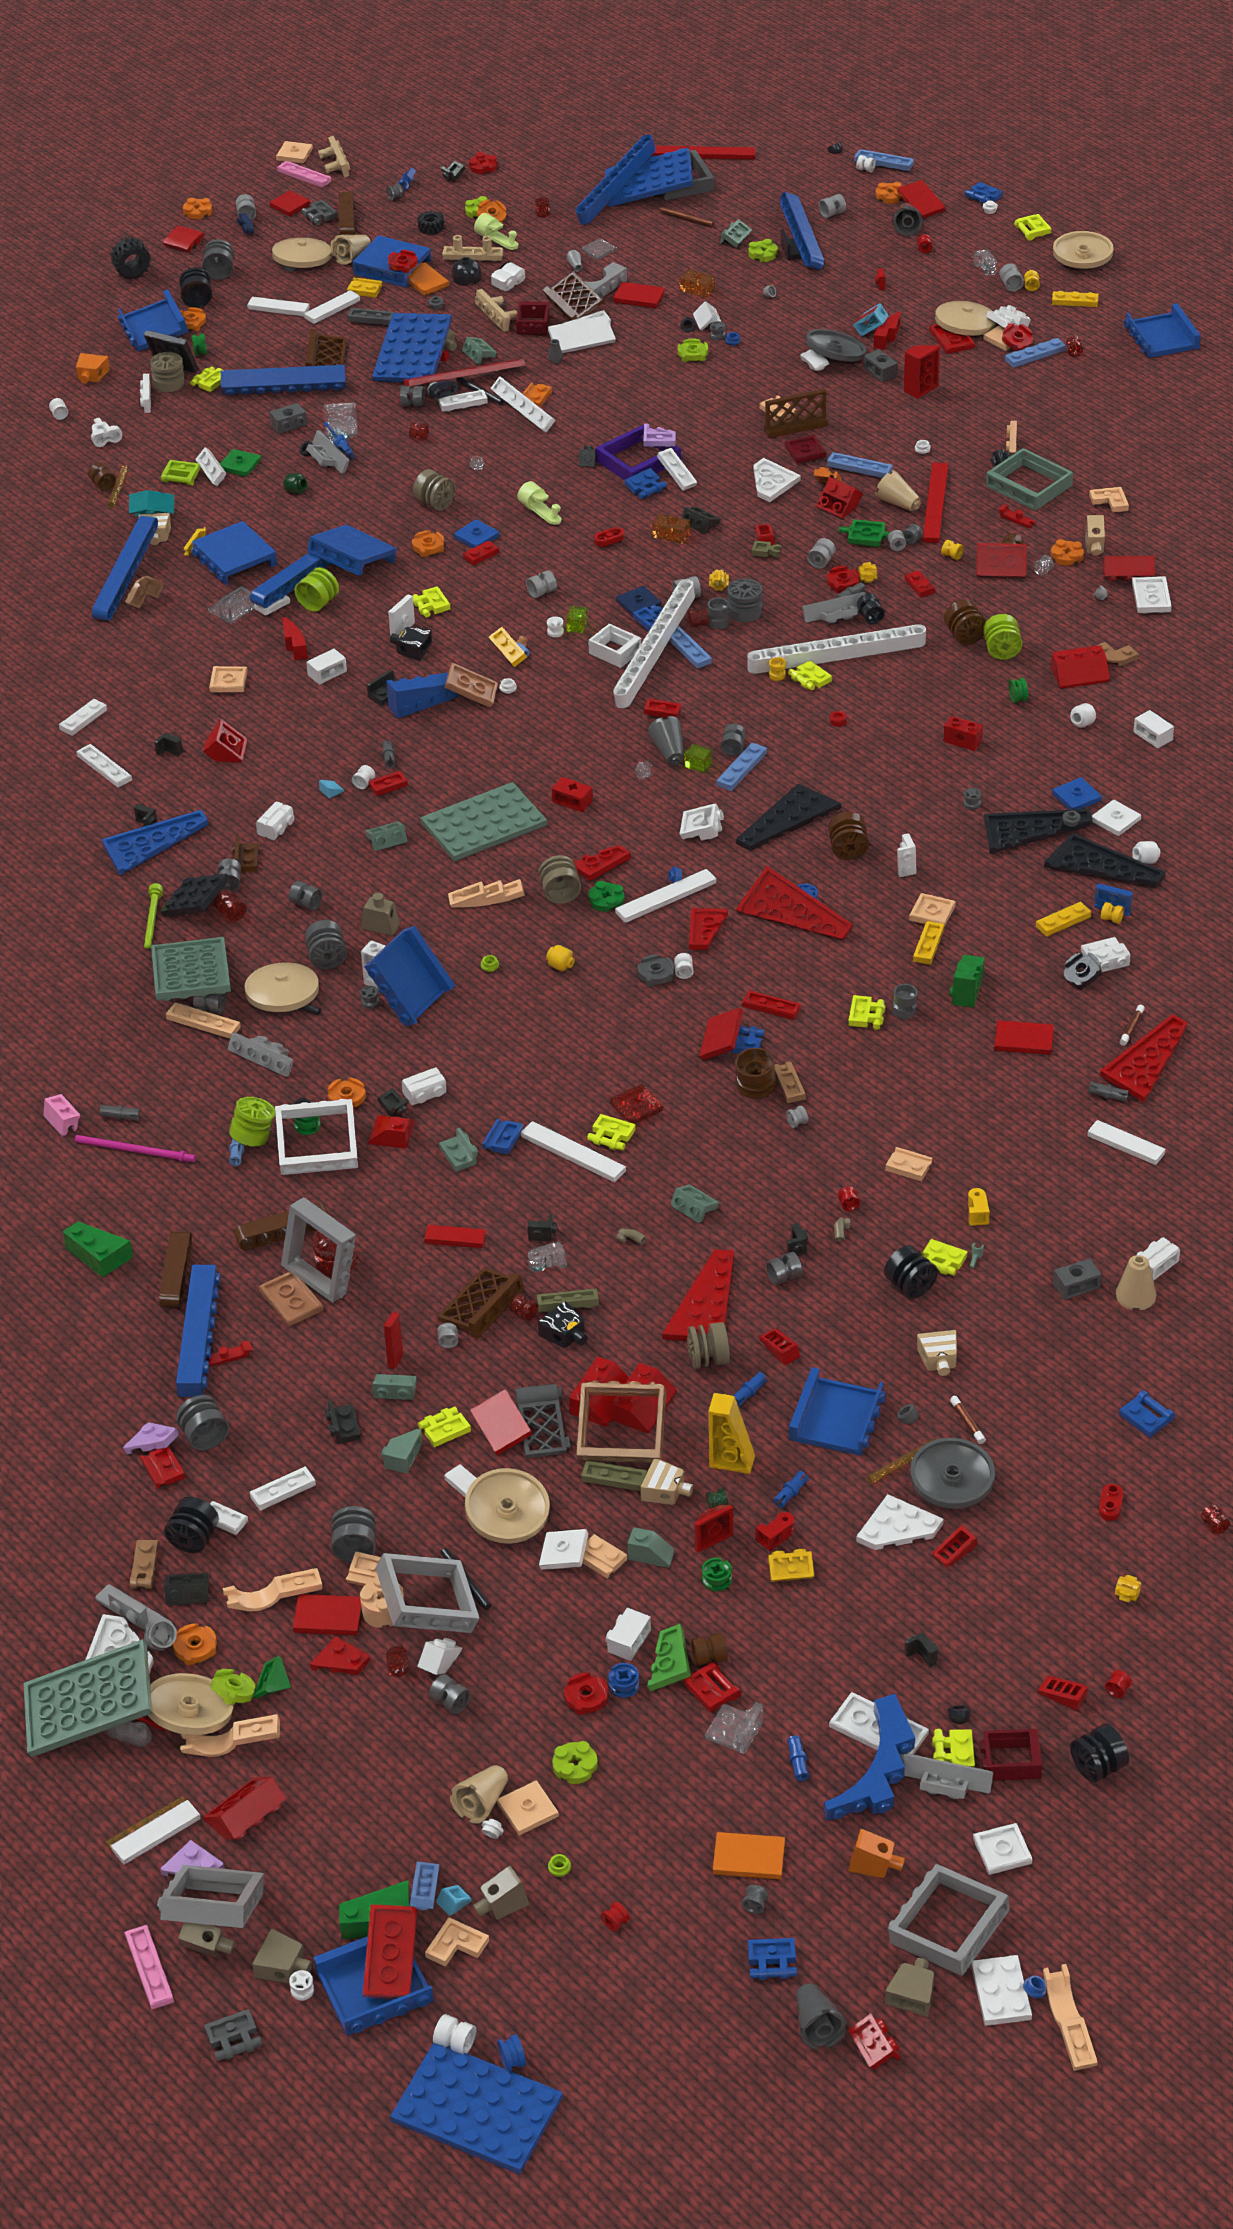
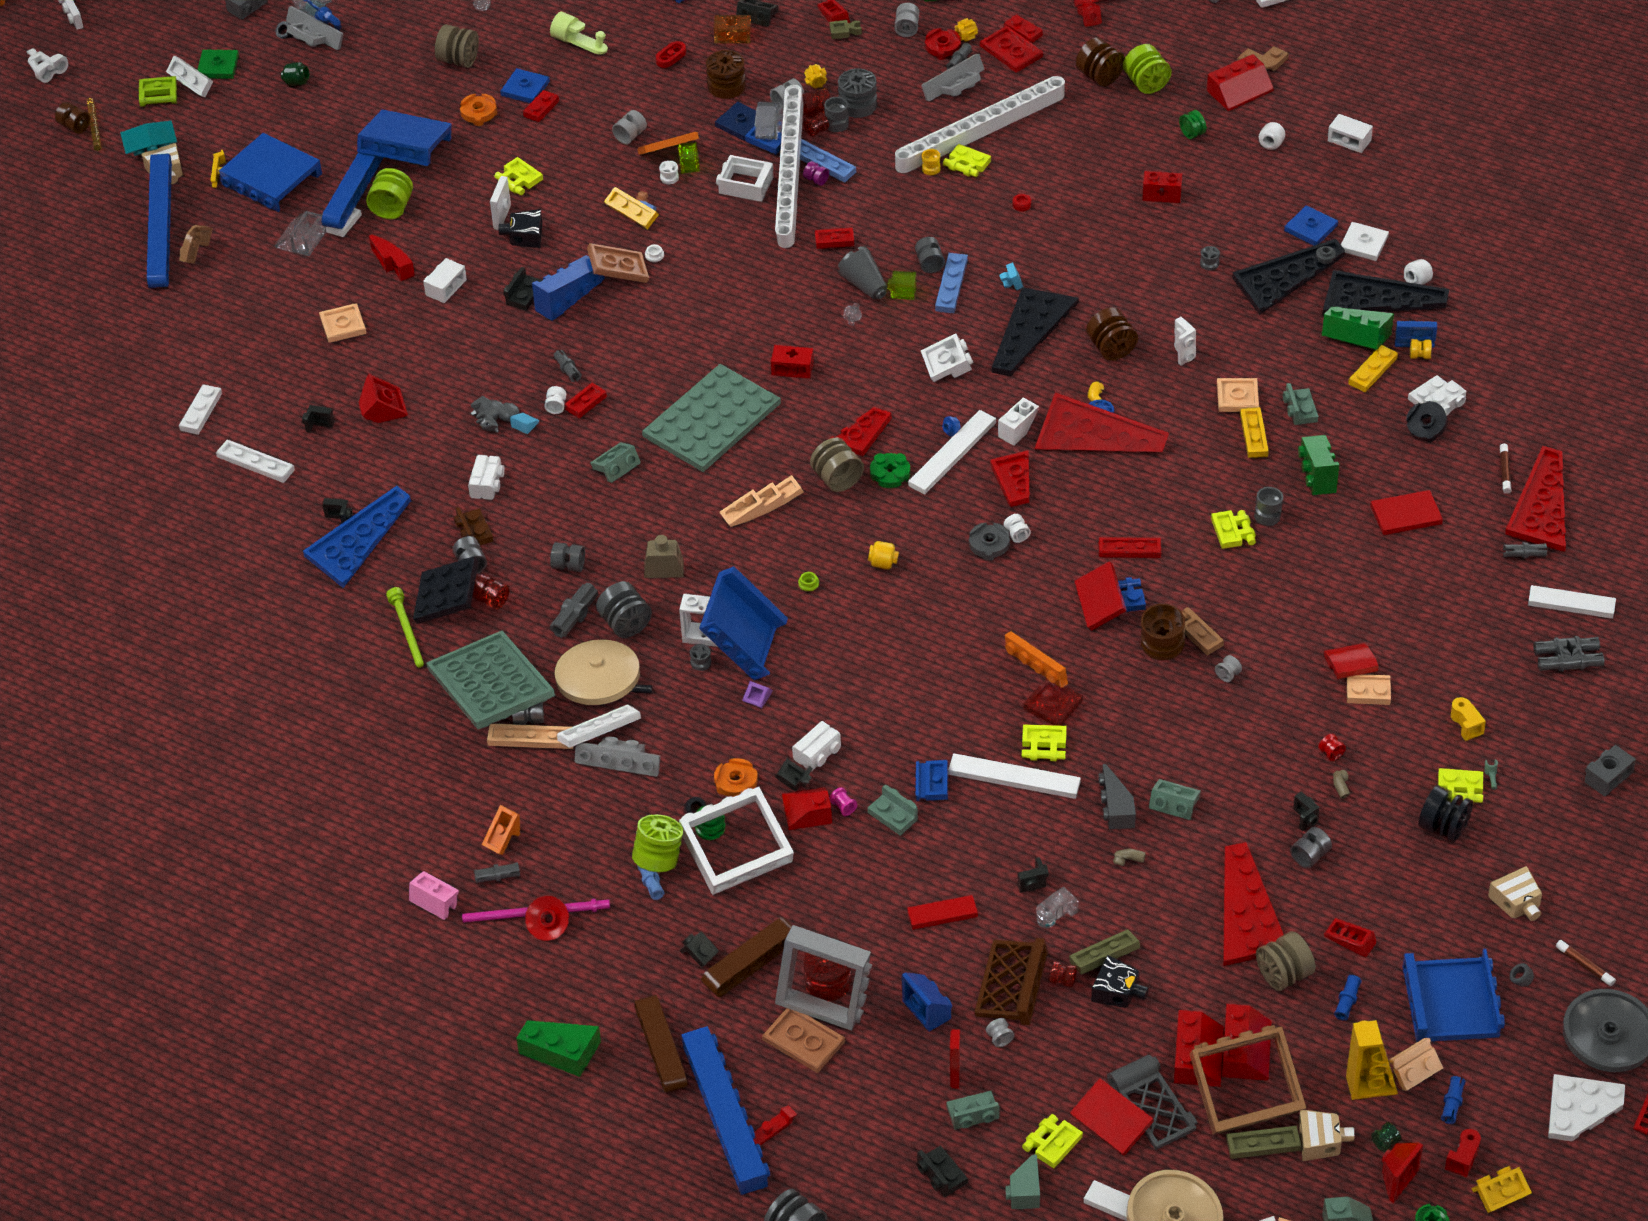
camera: 20 degrees left, 5 degrees up
(134, 1149) = (536, 918): none -> red dish
(141, 1078) = (501, 830): none -> orange slope
(245, 1209) = (699, 948): none -> pearl dark grey bracket
(258, 1025) = (598, 726): none -> white tile
(287, 937) = (574, 610): none -> dark grey piece
(307, 772) = (490, 410): none -> dark grey animal
(400, 1037) = (756, 694): none -> medium lavender slope
(401, 1293) = (925, 1000): none -> blue slope
(420, 1129) = (843, 801): none -> dark pink bush
(562, 603) = (667, 143): none -> orange tile
(637, 1066) = (1036, 659): none -> orange plate
(643, 561) = (725, 74): none -> reddish brown wheel
(643, 1195) = (1118, 800): none -> dark grey slope
(654, 603) = (768, 120): none -> clear brick
(676, 655) = (817, 174): none -> magenta wheel
(703, 597) = (815, 102): none -> clear red wheel
(730, 884) = (1017, 421): none -> white slope
(773, 1453) = (1416, 1064): none -> light nougat plate
(794, 772) = (1011, 277): none -> medium azure tile
(812, 877) = (1094, 391): none -> yellow arm
(870, 608) = (991, 69): black wheel -> none
(894, 1465) = (1545, 1031): clear yellow bar -> none
(900, 597) = (1011, 49): none -> red tile
(905, 1138) = (1351, 660): none -> red slope
(981, 931) = (1300, 405): none -> sand green bracket
(983, 584) = (1090, 12): none -> red bracket
(1066, 881) = (1358, 326): none -> green wedge
(1097, 1180) = (1568, 653): none -> dark grey pin

